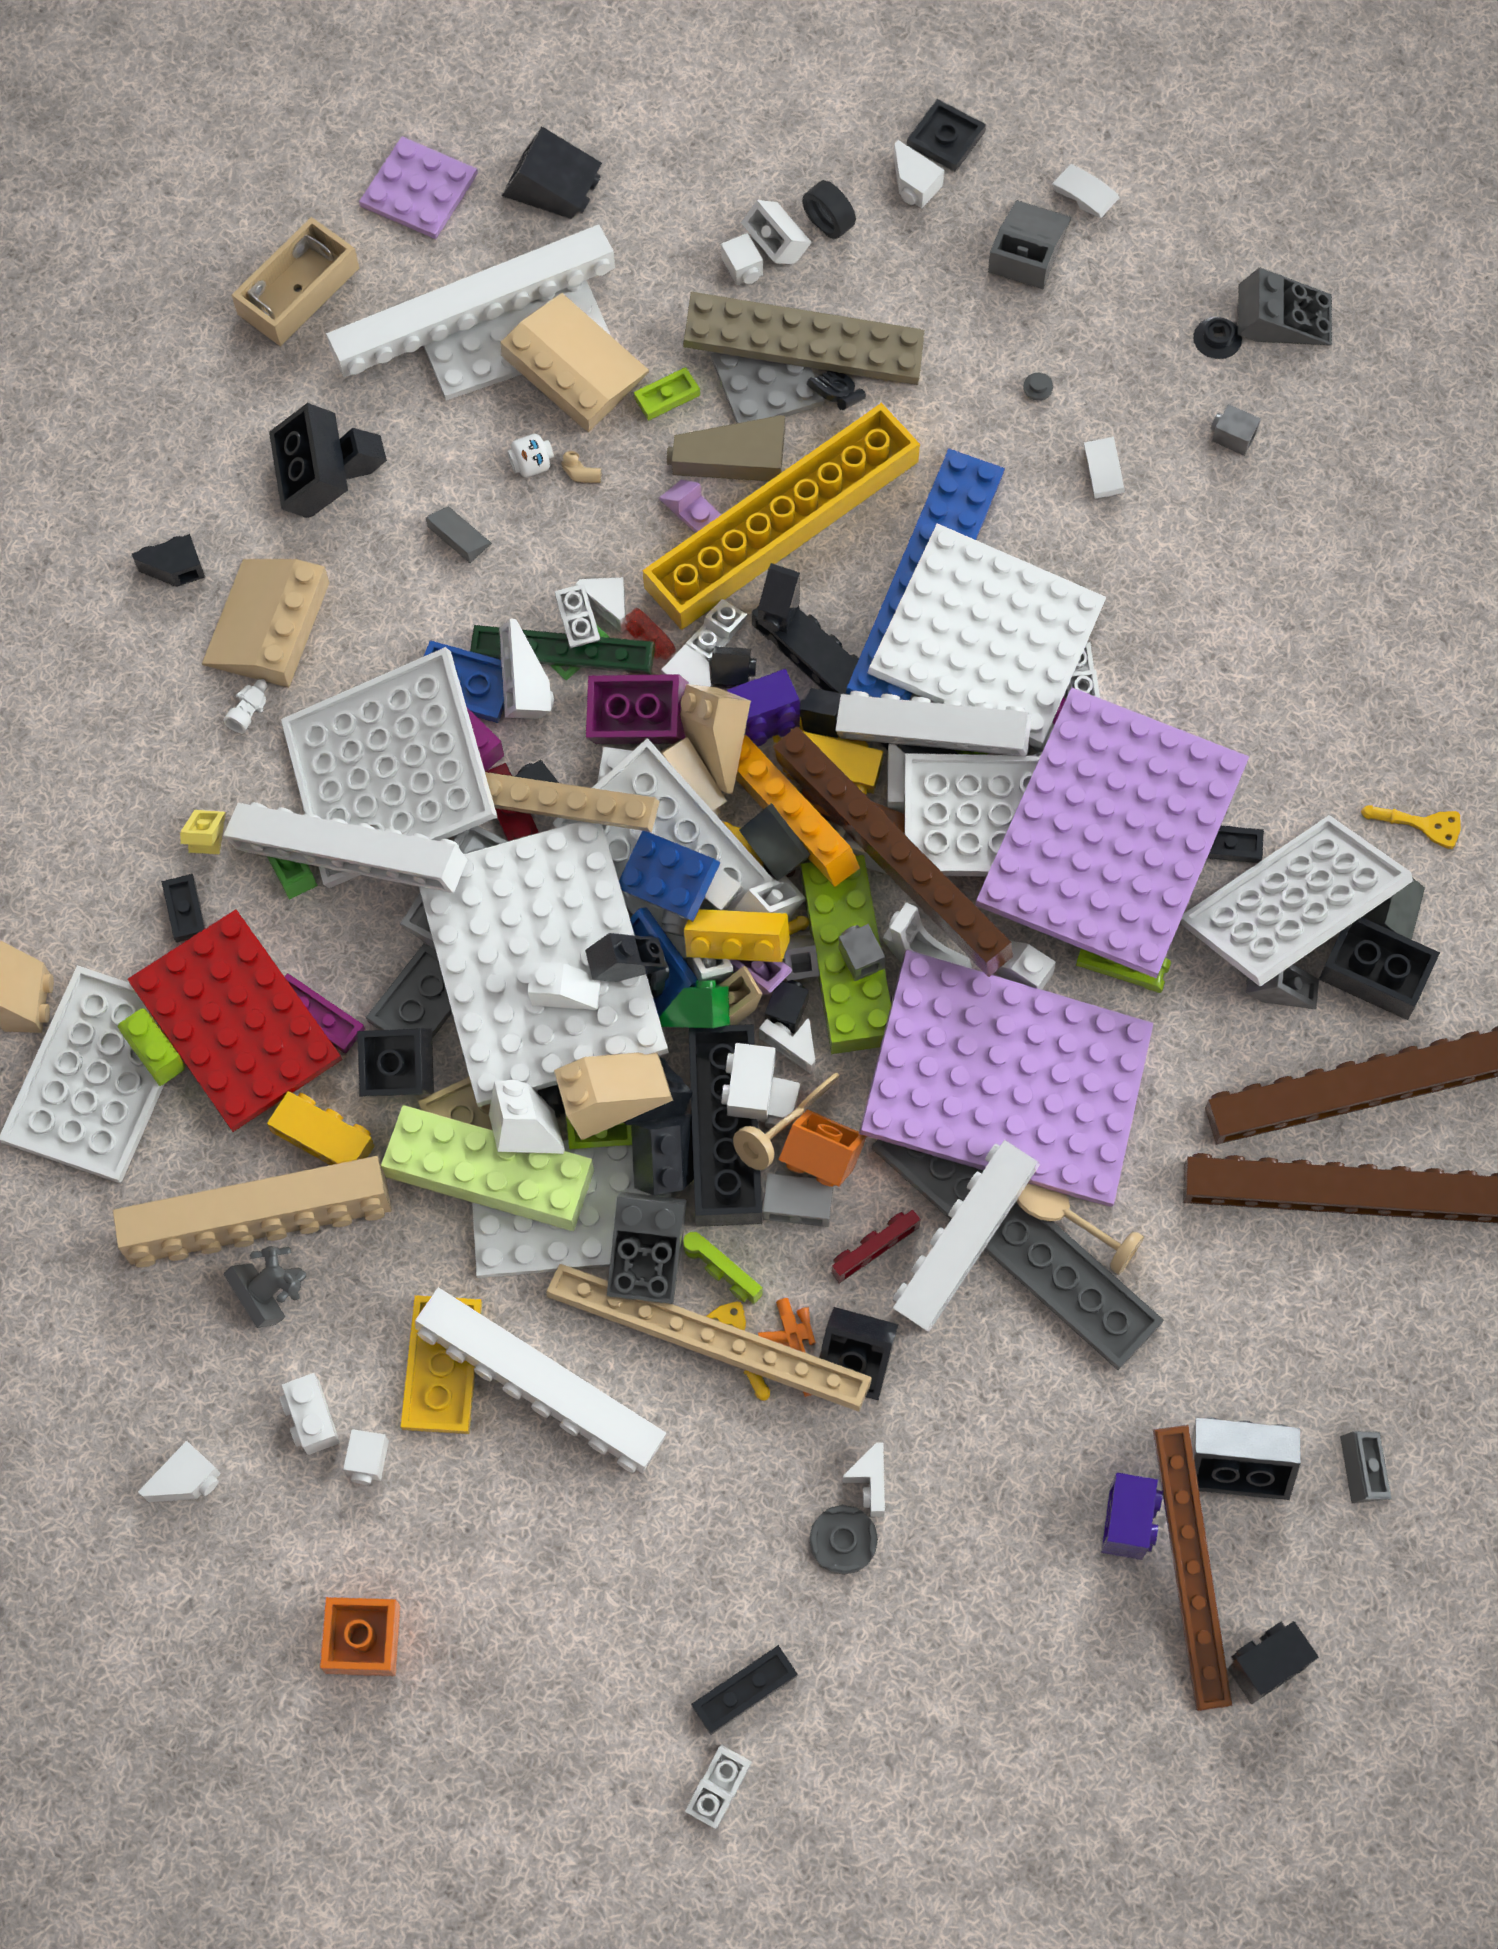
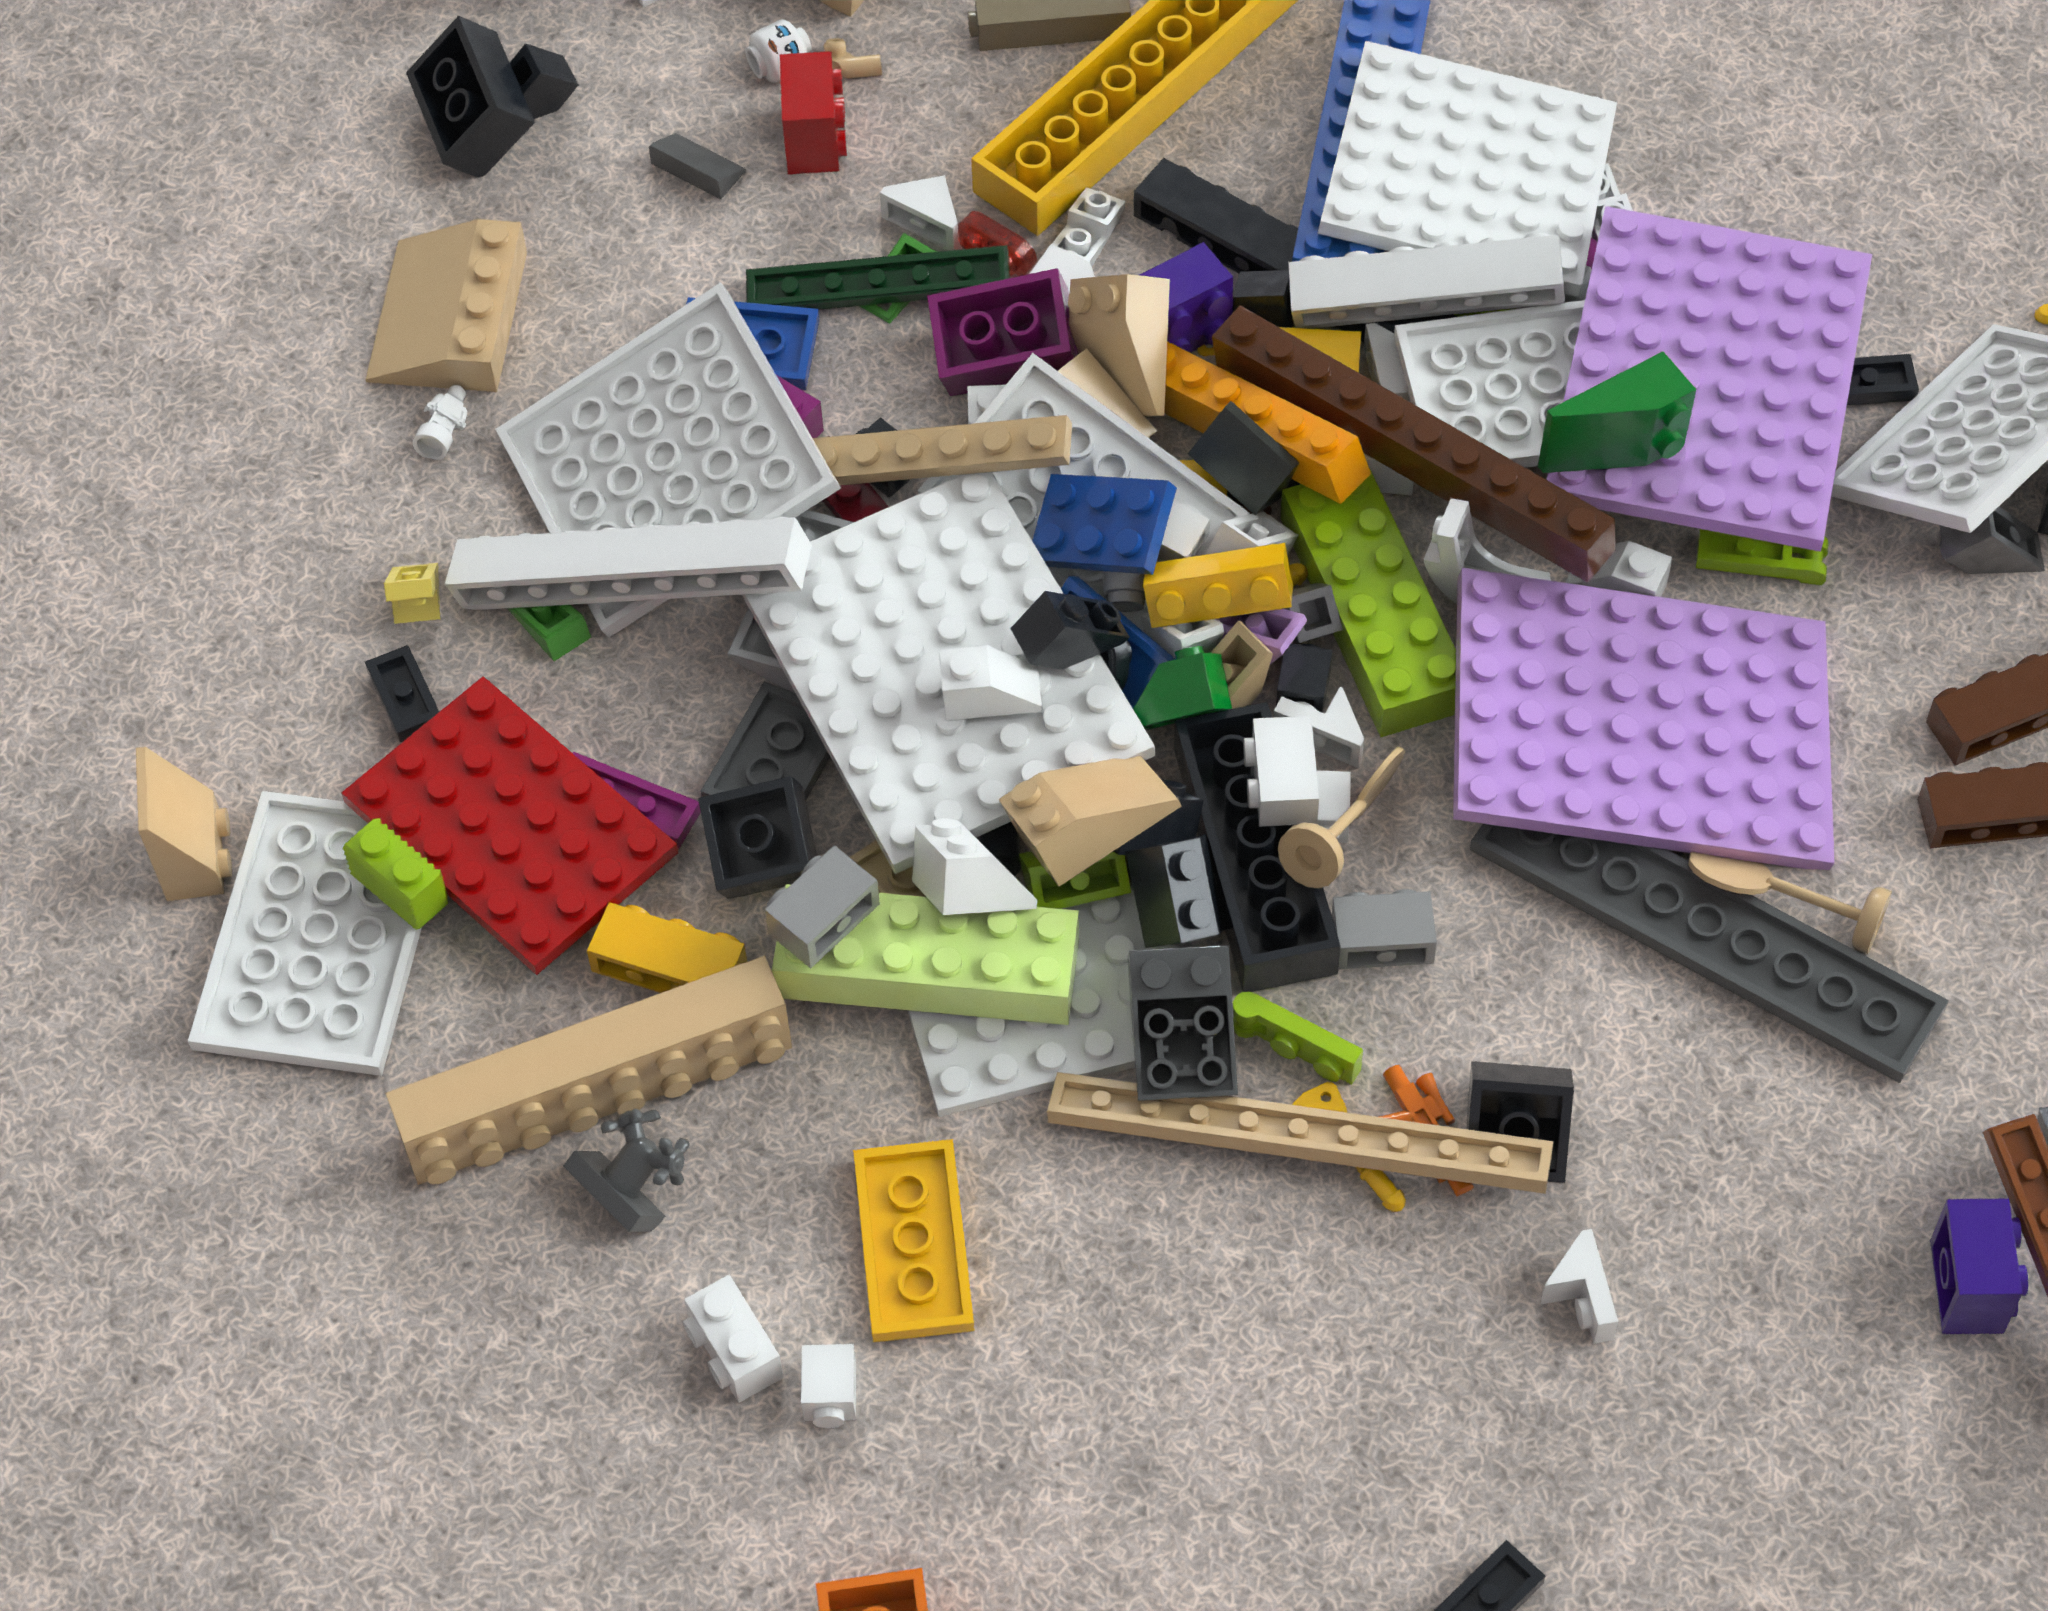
camera: 10 degrees left, 10 degrees down
(170, 561) = (297, 256): black slope -> none
(182, 1477) = (556, 1462): white slope -> none
(419, 1130) = (821, 906): none -> light grey brick
(524, 680) = (832, 319): white slope -> none
(540, 1381) = (1067, 1232): white brick -> none
(541, 512) = (812, 112): none -> red brick
(577, 615) = (891, 229): white slope -> none
(687, 503) = (1010, 80): lavender slope -> none
(732, 665) = (1122, 258): black brick -> none
(779, 598) = (1173, 157): black slope -> none
(822, 1148) = (1404, 851): orange brick -> none
(843, 1553) = (1558, 1397): dark grey tile -> none
(861, 951) = (1399, 579): flat silver brick -> none
(874, 1245) = (1509, 972): dark red plate -> none
(966, 1235) = (1639, 930): white brick -> none
(1034, 868) = (1621, 420): none -> green slope

